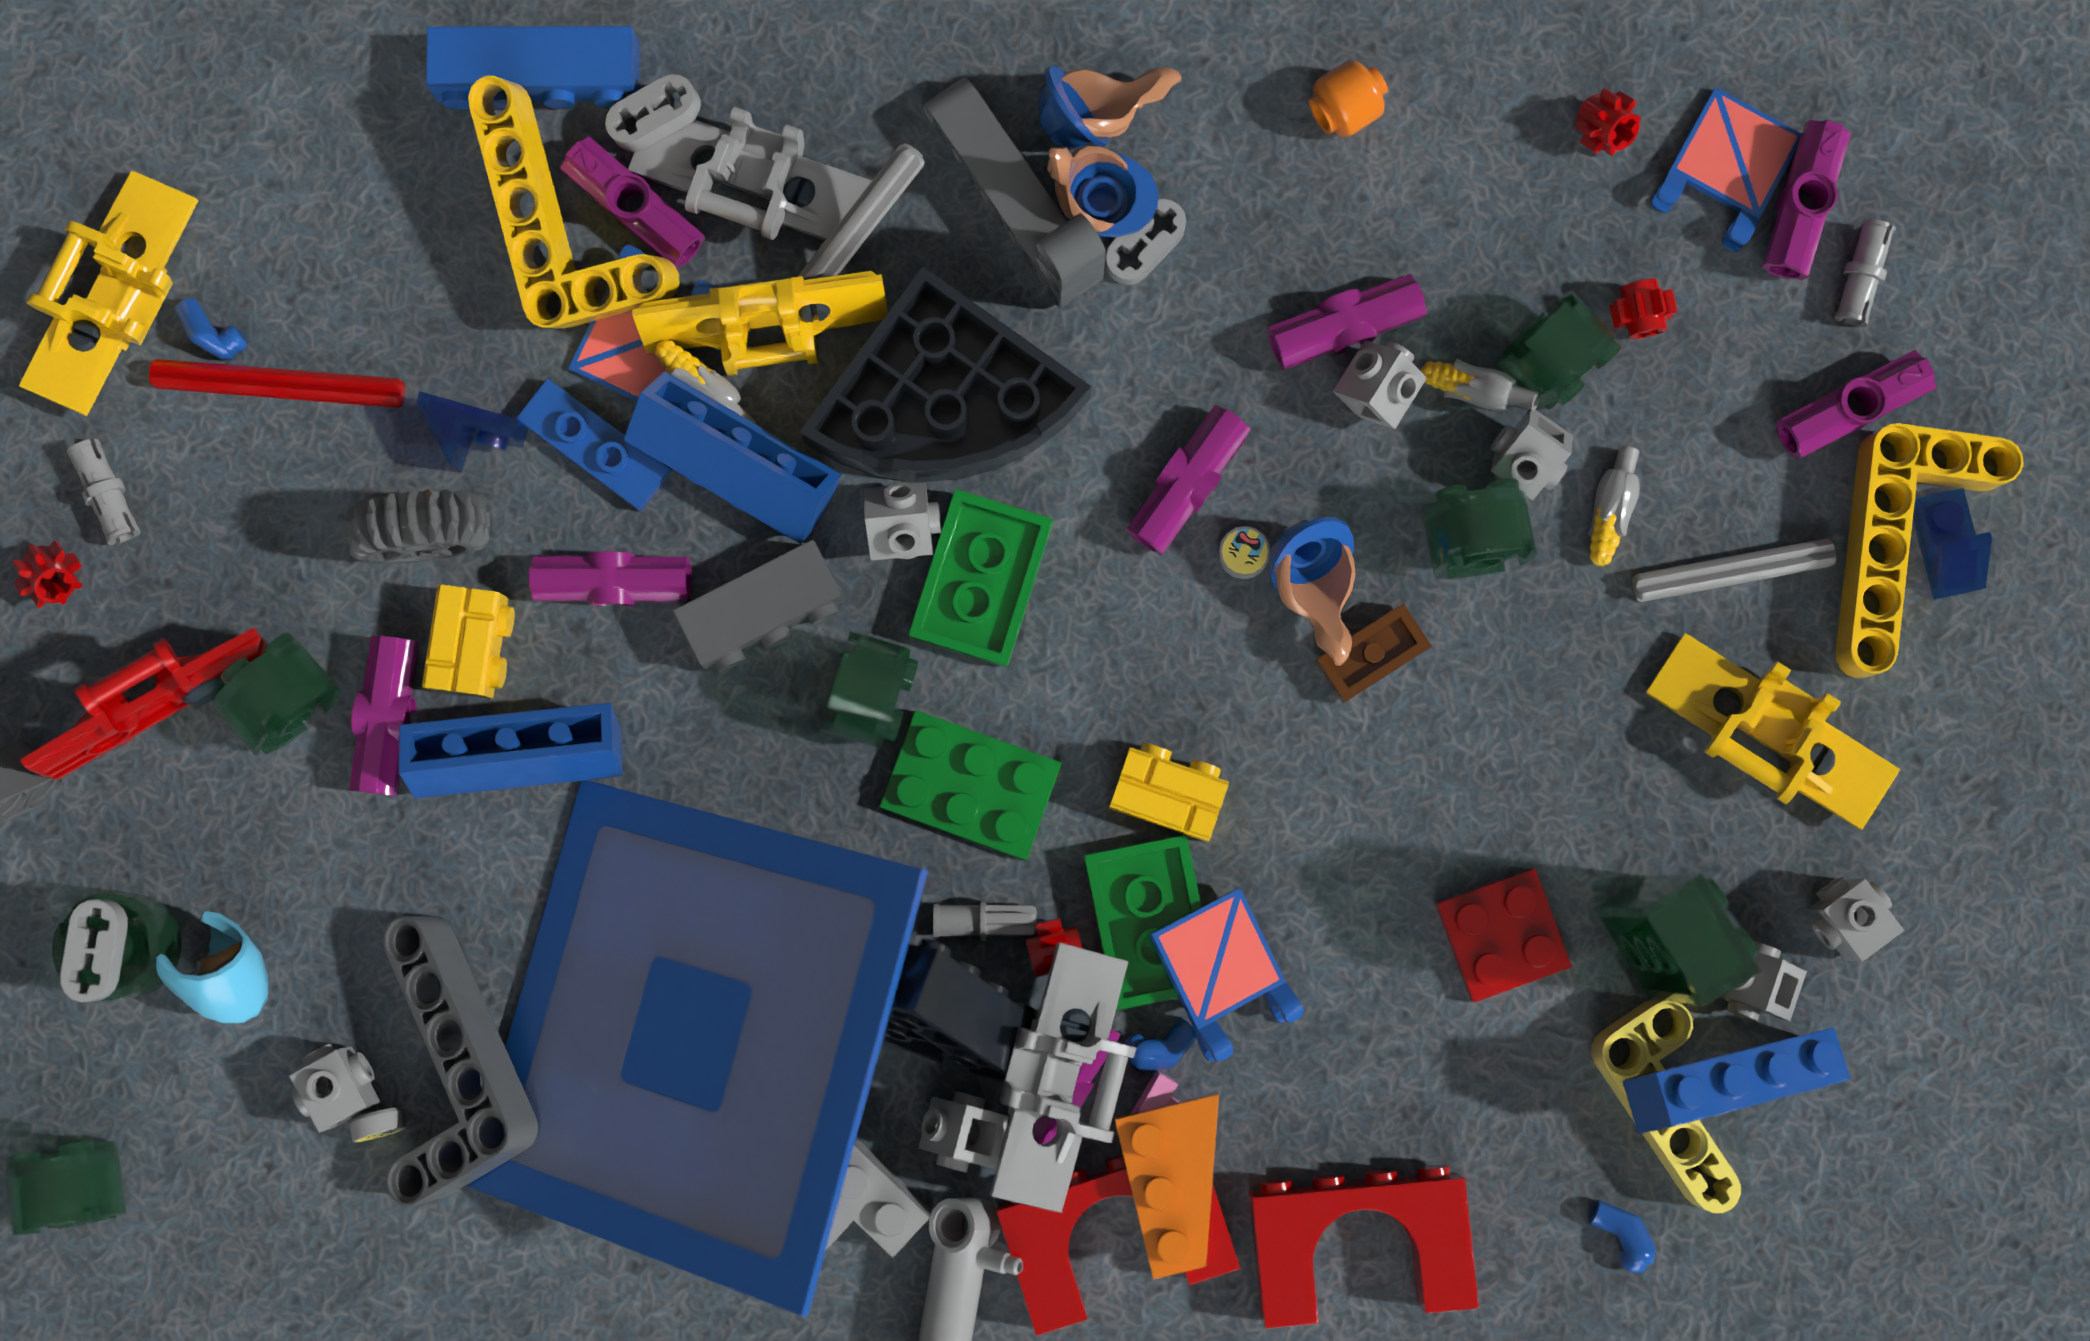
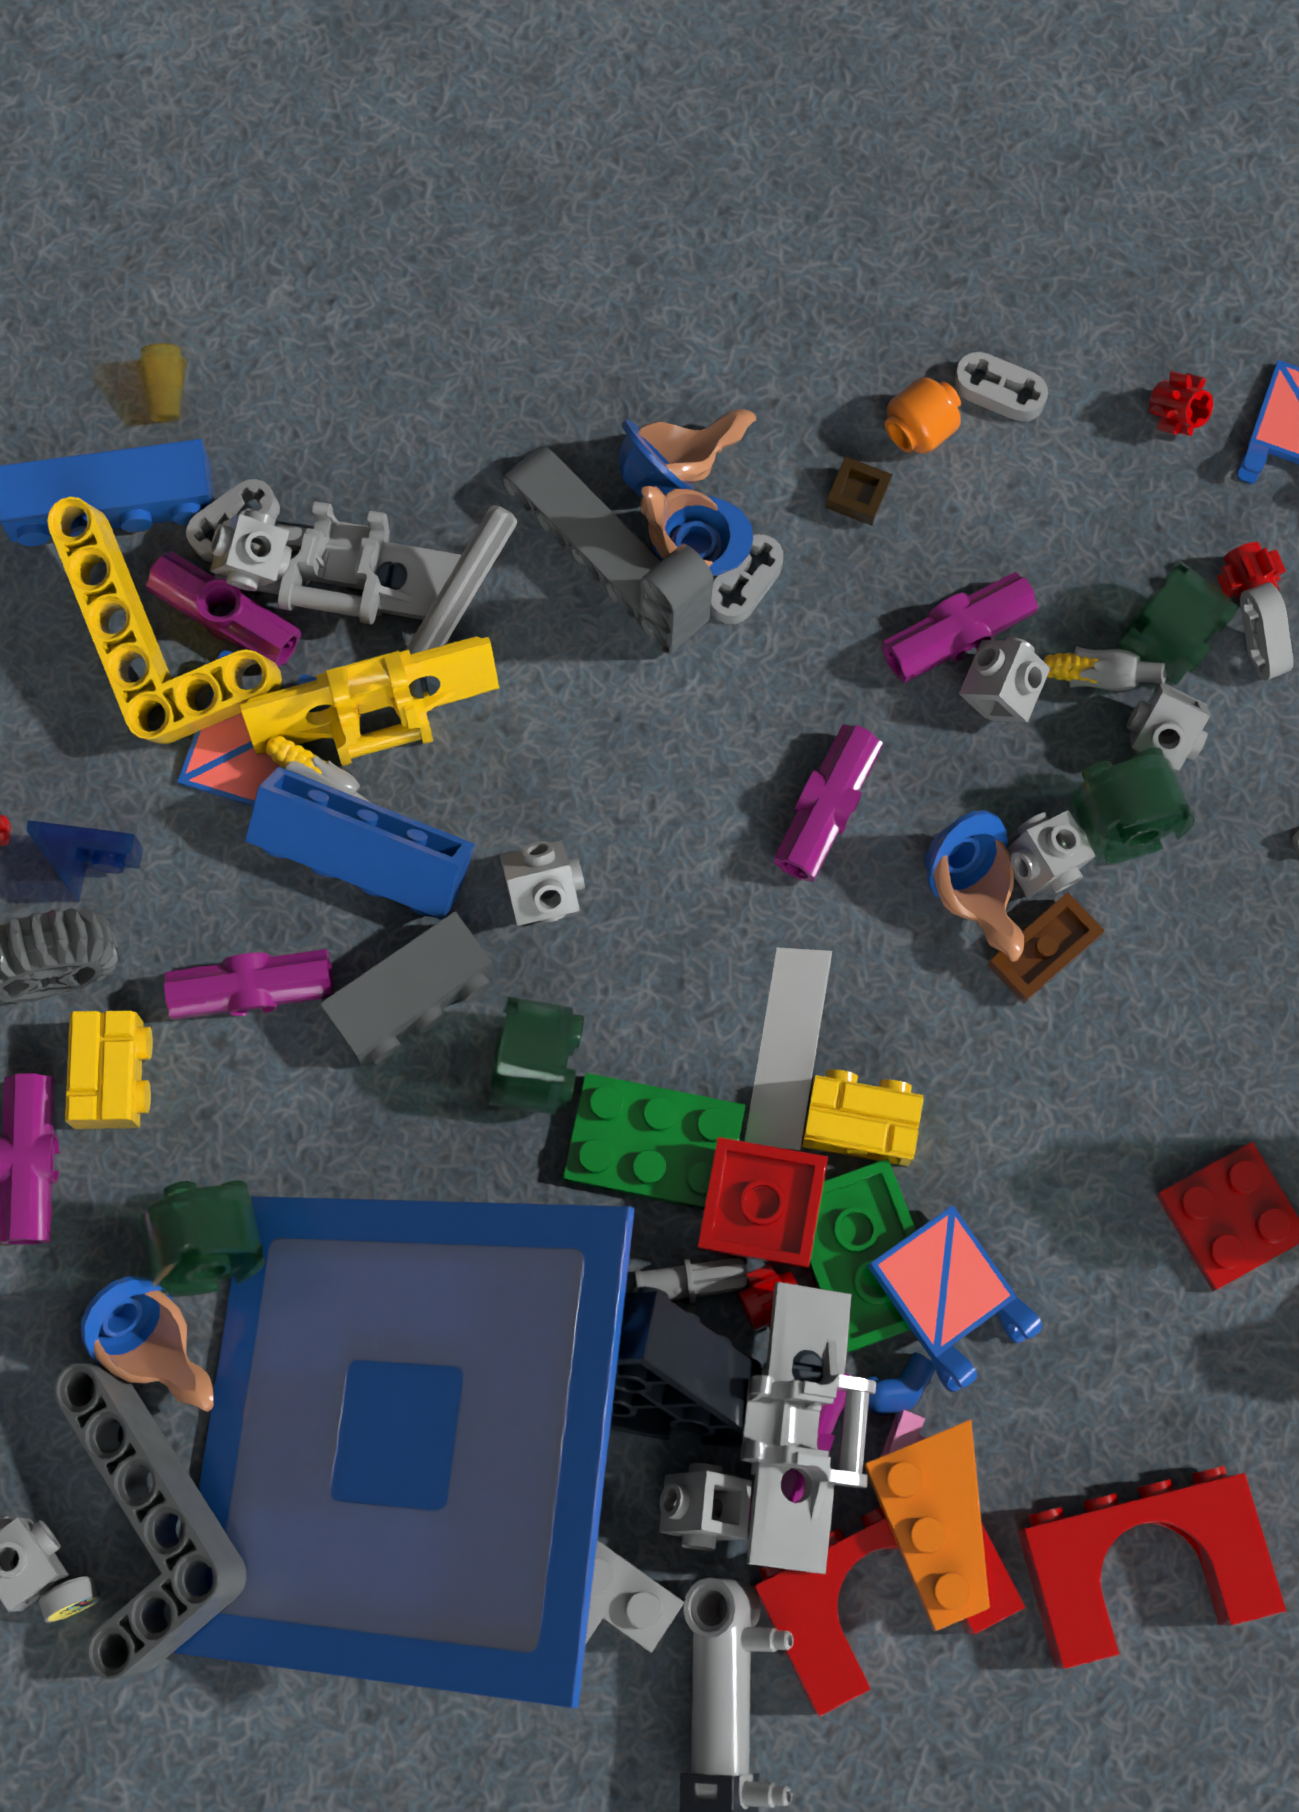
camera: 10 degrees left, 10 degrees down
(471, 902) = (144, 1339): none -> piece
(510, 750) = (120, 1181): blue brick -> none
(534, 817) = (201, 1237): none -> clear green brick
(593, 444) = (214, 854): blue plate -> none
(645, 146) = (234, 555): none -> light grey brick
(942, 393) = (566, 749): black brick -> none
(981, 578) = (632, 930): green plate -> none
(1061, 862) = (763, 1202): none -> red plate
(1111, 713) = (788, 1048): none -> white sticker
(1244, 552) = (896, 867): tile -> none
(1271, 167) = (858, 491): none -> dark brown plate
(1391, 564) = (1049, 853): none -> light grey brick
(1439, 67) = (1001, 386): none -> light grey beam
(1614, 505) = (1260, 768): light grey piece -> none
(1646, 371) = (1266, 630): none -> light grey beam

